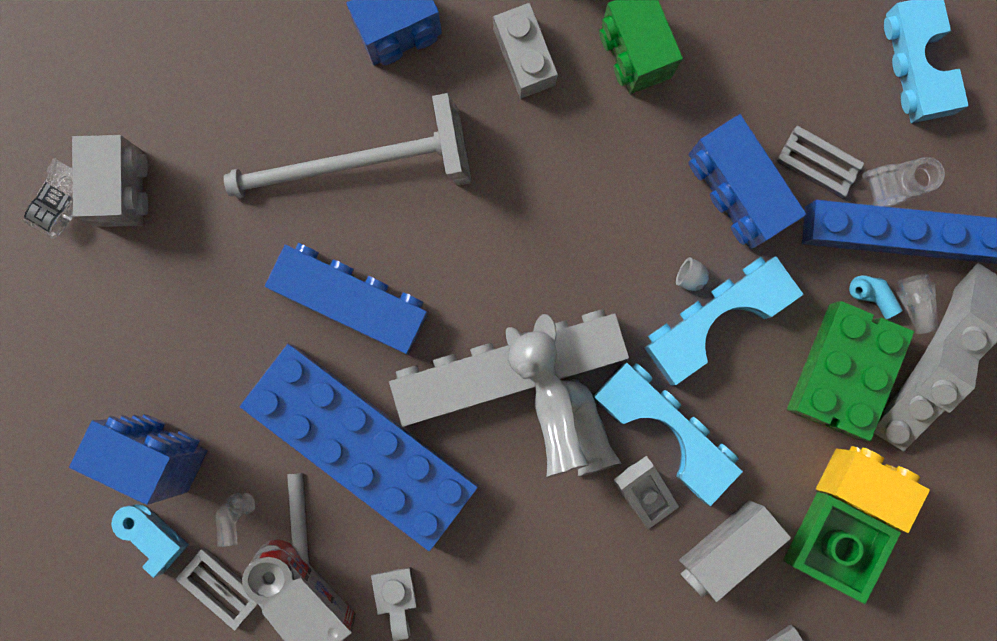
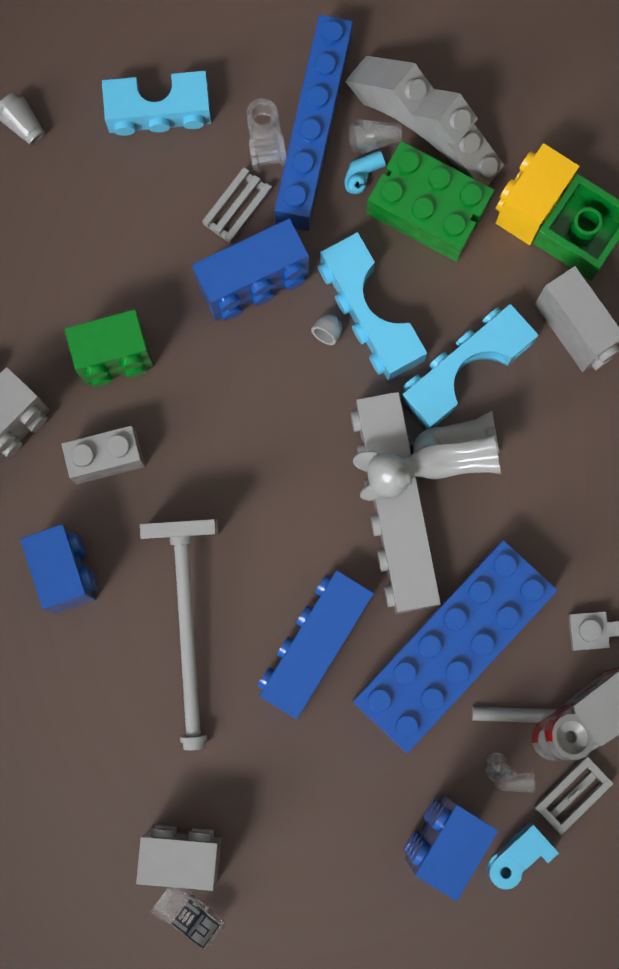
camera: 80 degrees left, 5 degrees down
(646, 492) = (519, 393): light grey slope -> none

